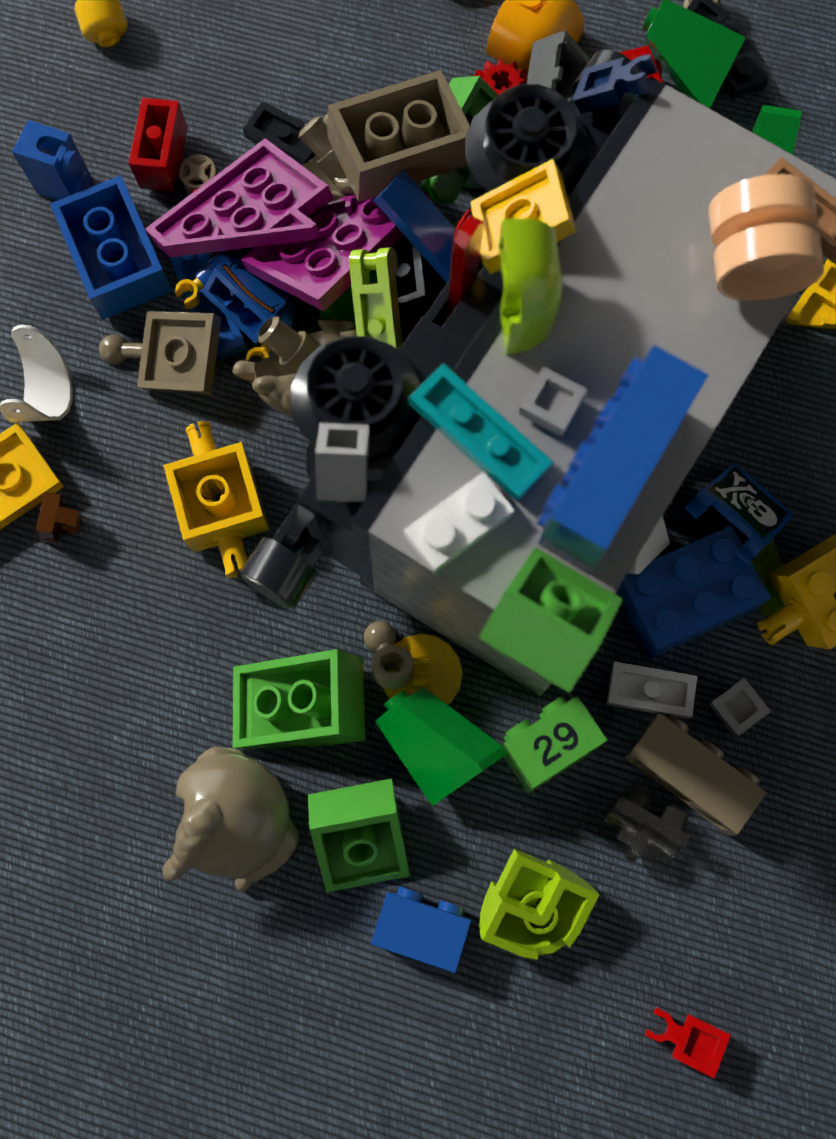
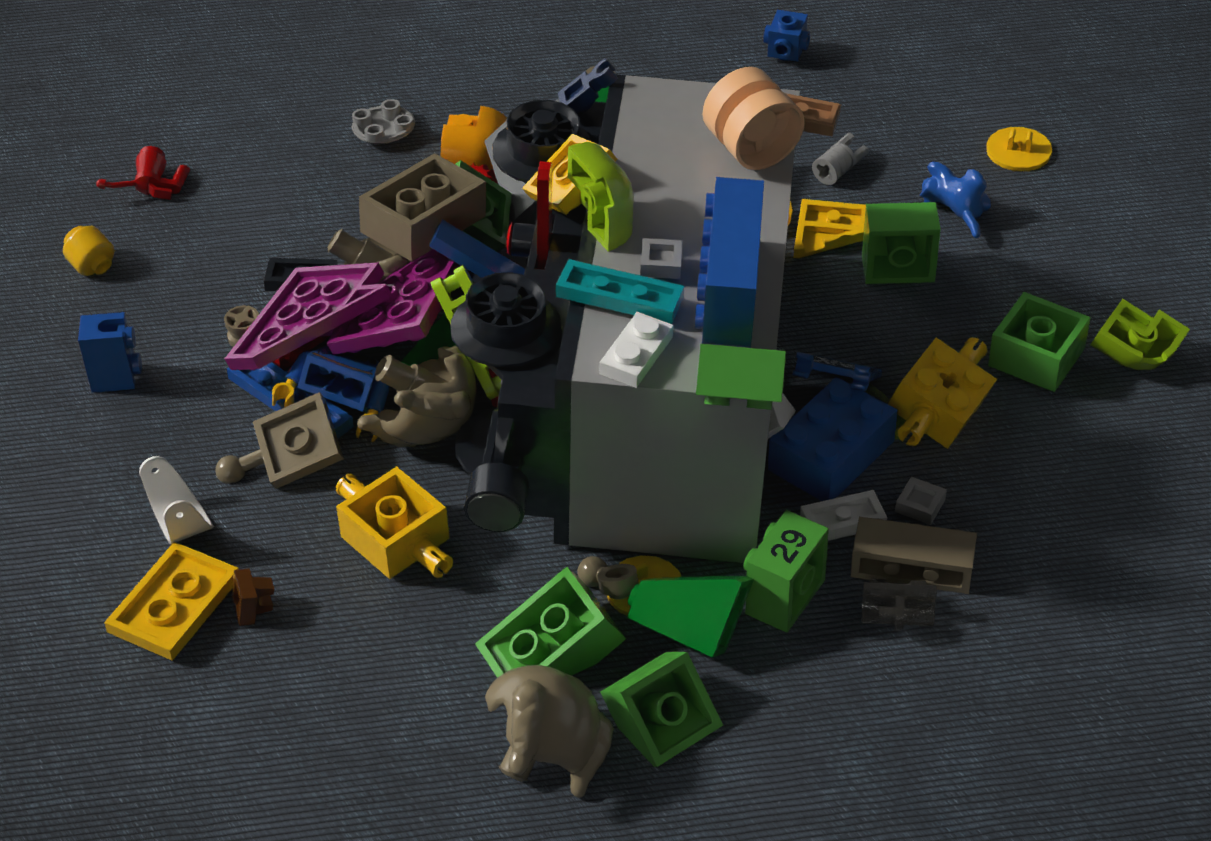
camera: 30 degrees left, 30 degrees down
(110, 247) = (194, 392): blue brick -> none
(158, 144) = (196, 312): red brick -> none
(342, 462) = (526, 351): light grey brick -> none
(421, 929) = (758, 749): blue brick -> none
(535, 907) = (843, 684): lime brick -> none
(696, 1042) = (1034, 730): red plate -> none

